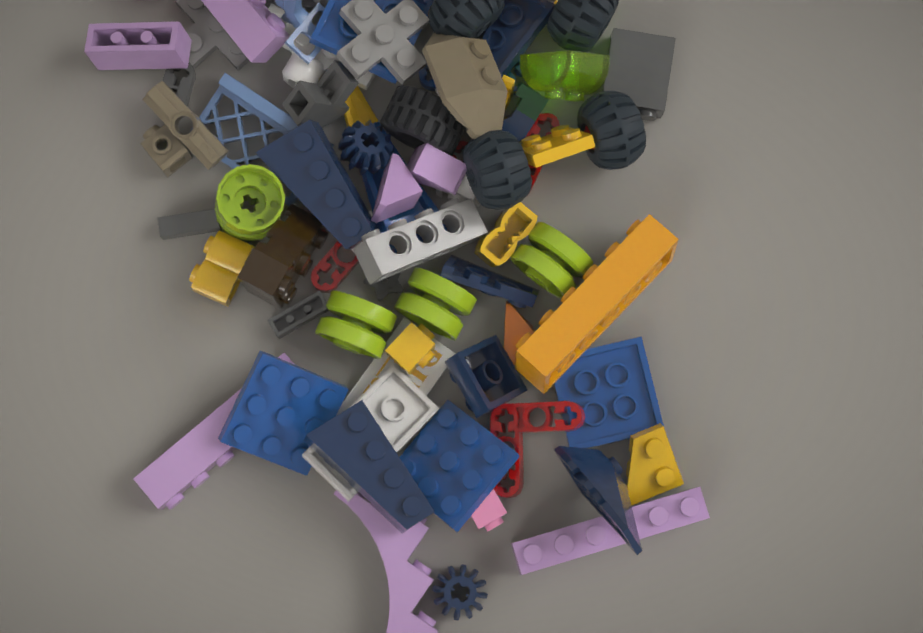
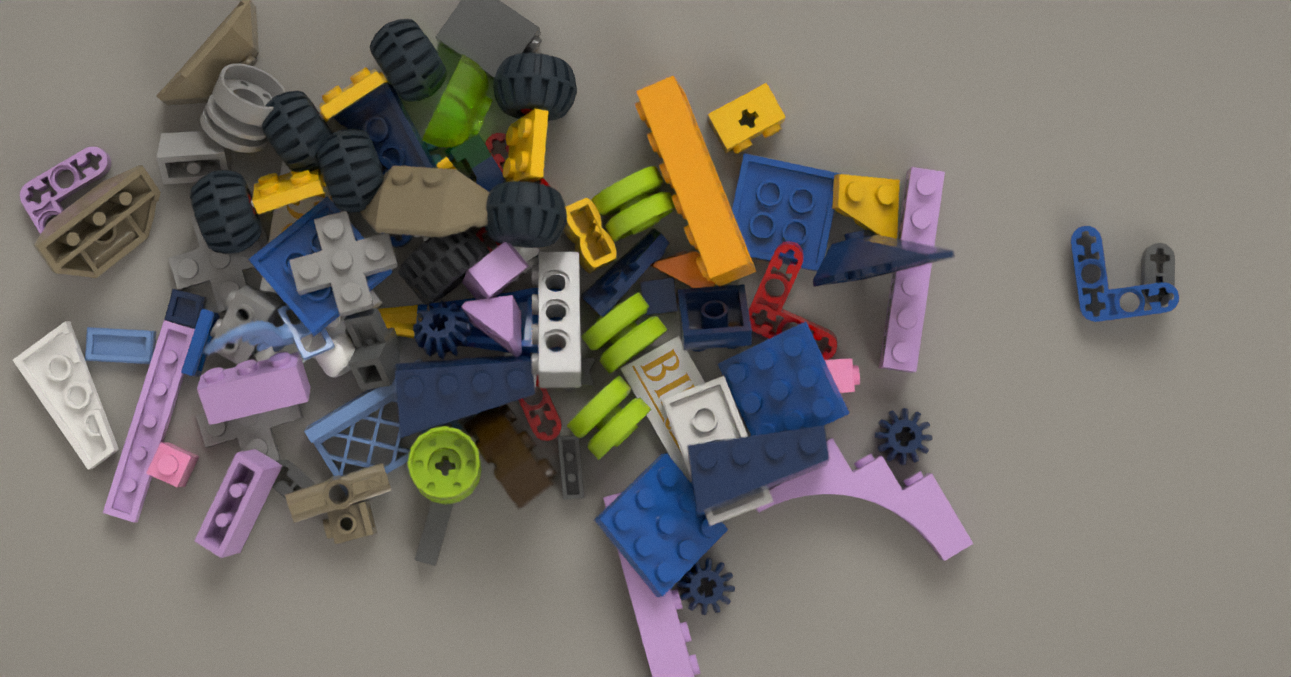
camera: 60 degrees left, 5 degrees up
(220, 269) = (492, 520): yellow brick -> none
(248, 490) = (717, 589): none -> dark blue gear
(412, 348) = (655, 374): yellow brick -> none
(482, 322) = (659, 296): none -> dark blue tile
(688, 324) = (757, 103): none -> yellow brick

